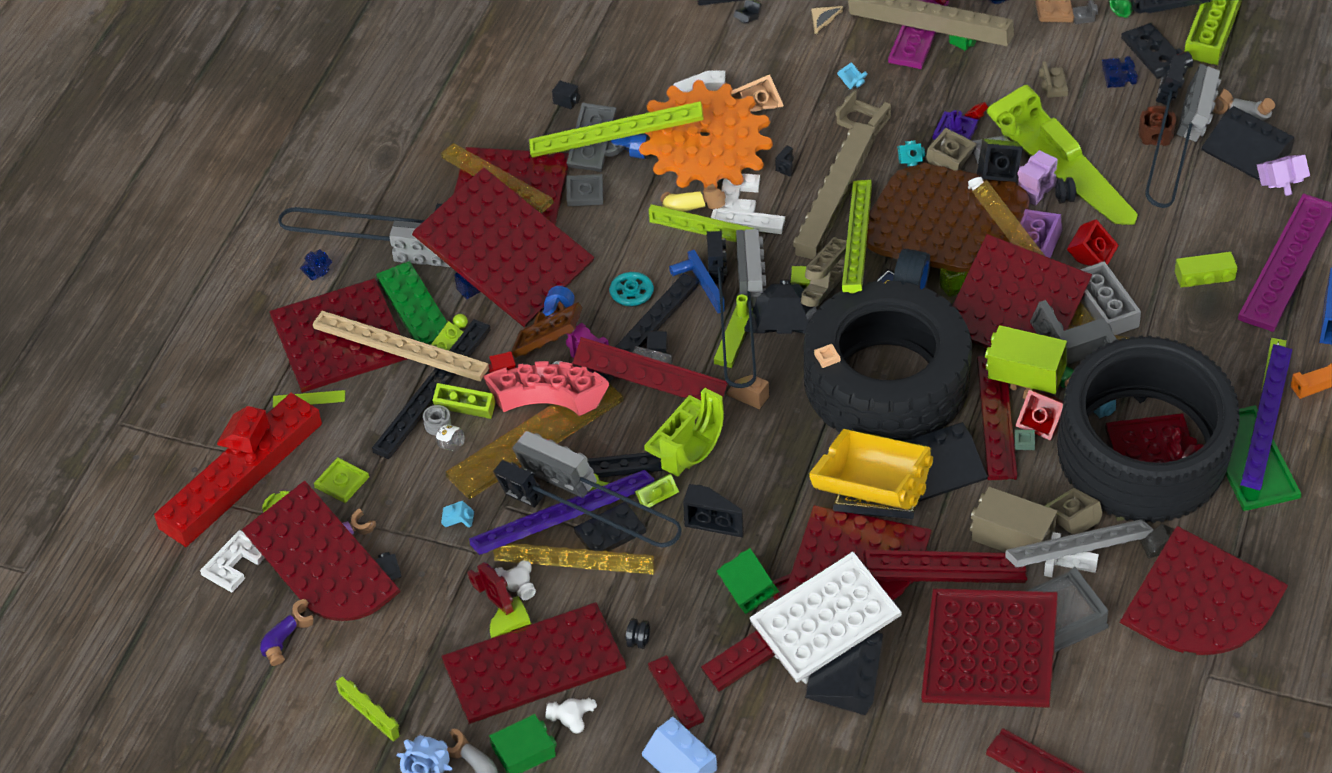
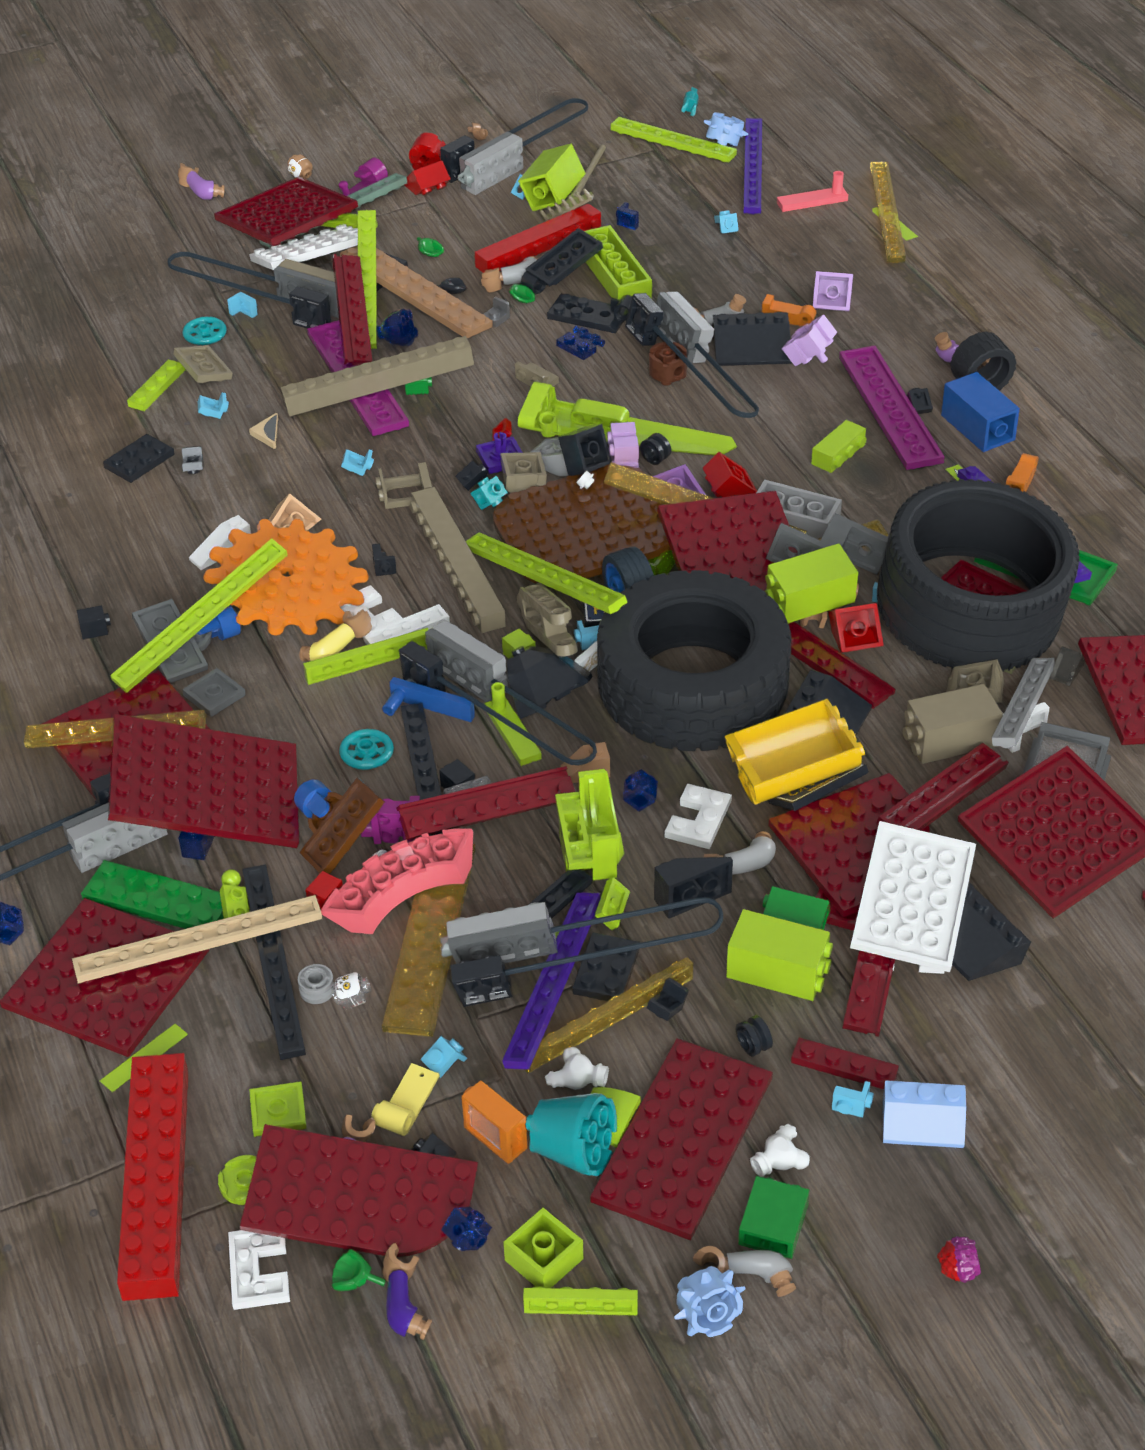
camera: 45 degrees left, 5 degrees down
(245, 430) = (130, 1123): red slope -> none
(276, 601) = (353, 1272): none -> green piece
(354, 621) = (466, 1228): none -> clear blue brick
(377, 665) = (543, 1250): none -> lime brick
(397, 532) = (406, 1102): none -> light yellow door
(432, 572) = (494, 1121): none -> orange window
(464, 400) = (327, 945): lime brick -> none
(466, 612) = (574, 1131): none -> teal cone
(493, 584) = (567, 1083): dark red plate -> none
(616, 576) = (669, 1000): none -> black bracket
(650, 719) = (852, 1101): none -> medium azure bracket
(708, 594) = (779, 955): none -> lime brick
(758, 429) = (640, 790): none -> clear blue brick
(770, 484) = (712, 809): none -> white plate
(778, 524) = (754, 856): none -> light grey piece
(827, 355) = (661, 673): light nougat tile -> none
(919, 132) = (472, 474): none -> black bracket
(1024, 439) = (866, 656): sand green plate -> none
(1181, 445) = (1005, 581): dark red hair -> none
(1305, 136) = (797, 314): none -> orange leg
(1315, 271) = (920, 400): none -> black bracket

